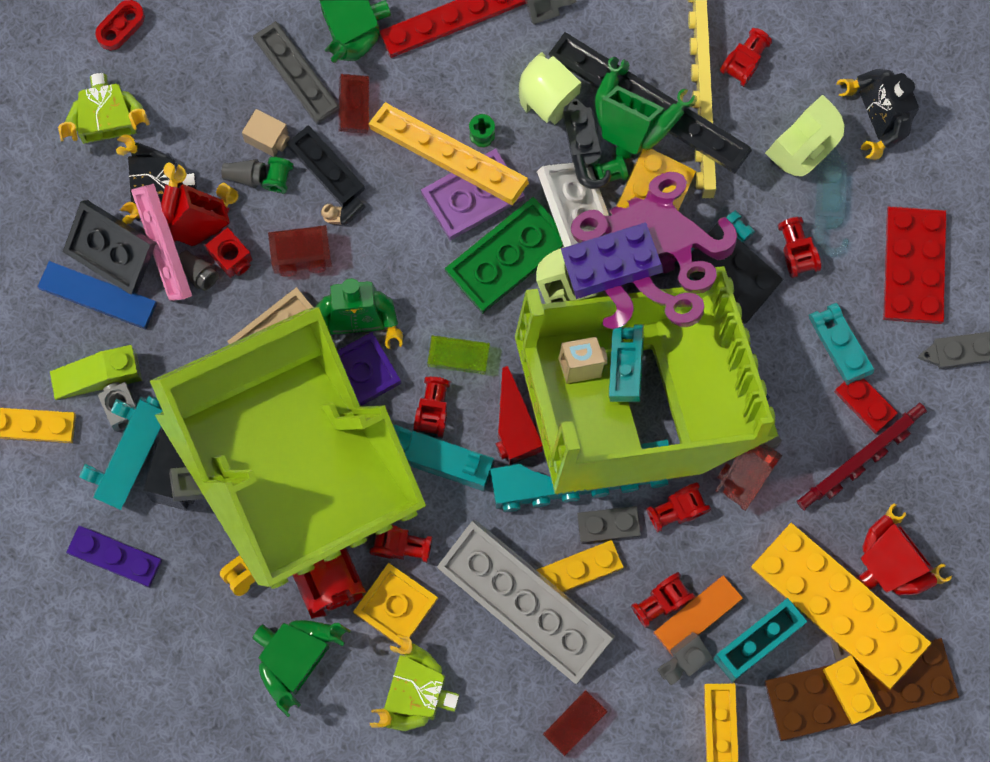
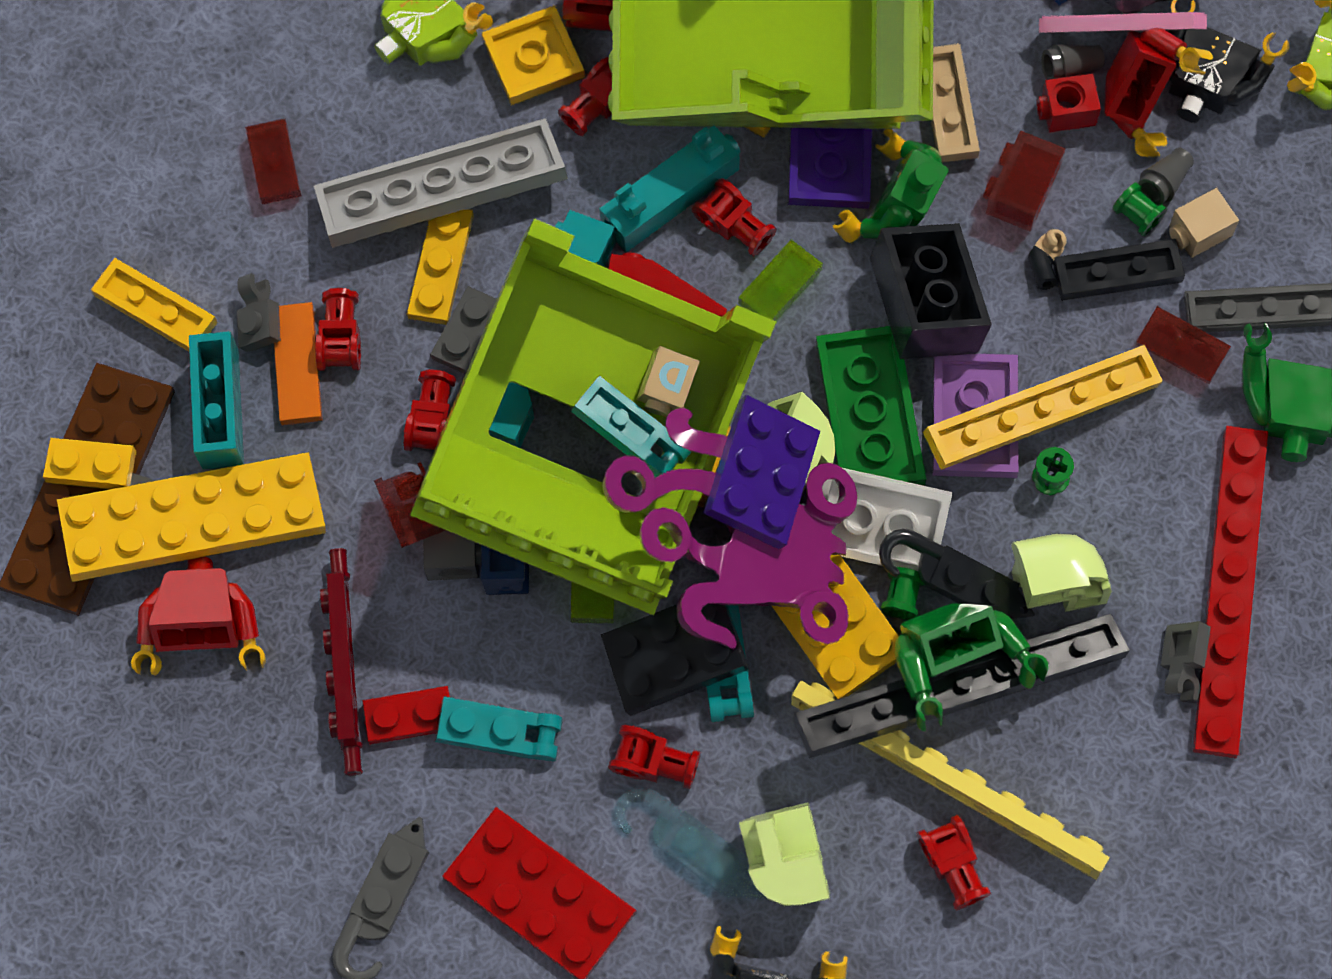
camera: 125 degrees right, 5 degrees down
(416, 255) = (930, 291): none -> black brick

